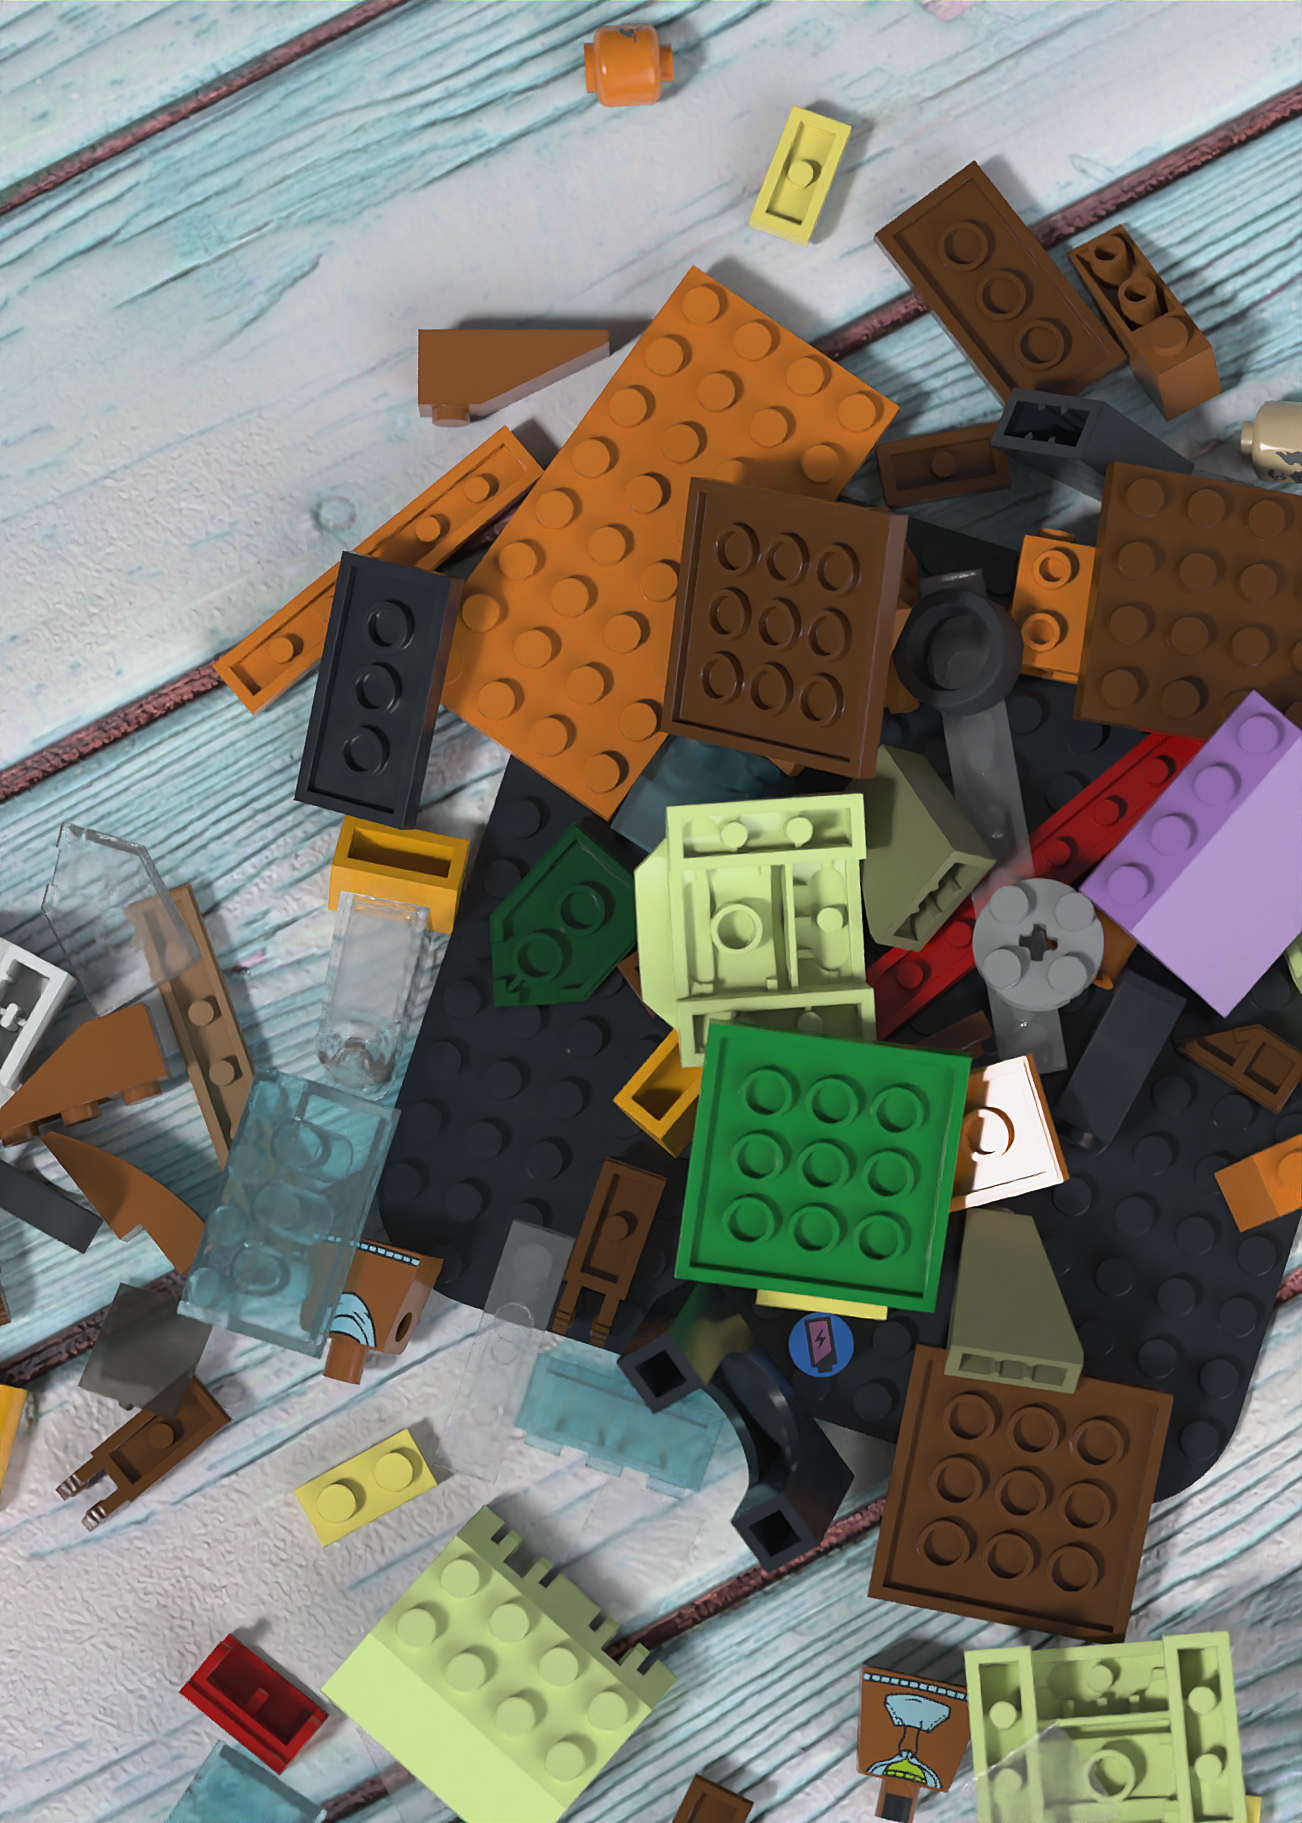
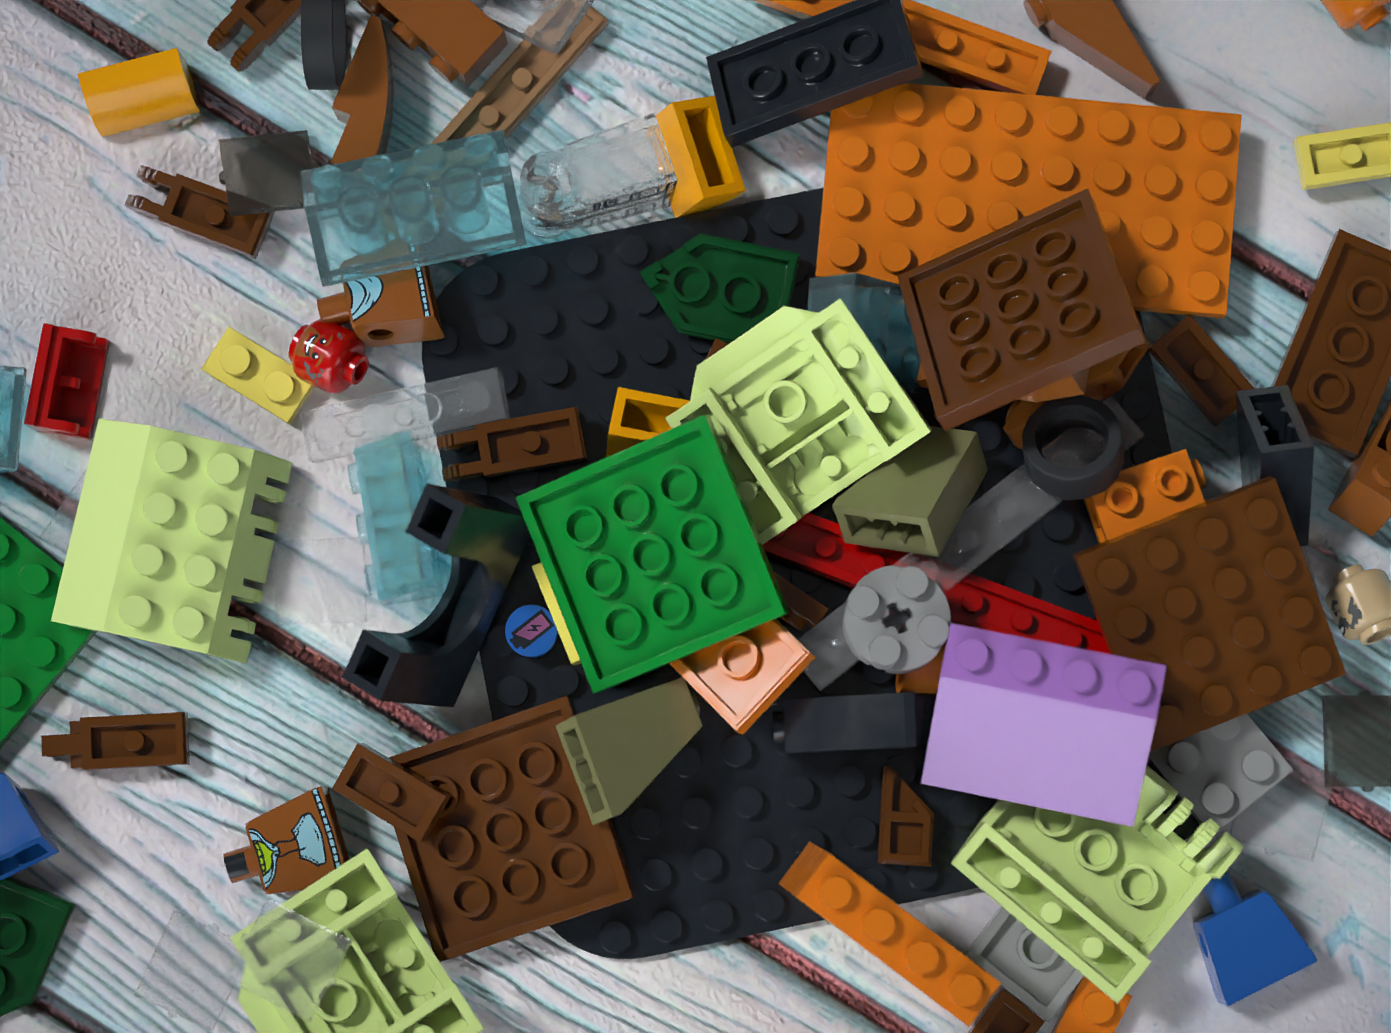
camera: 60 degrees right, 0 degrees up
(392, 1398) = (328, 356): none -> red head
(913, 1593) = (391, 792): none -> reddish brown plate

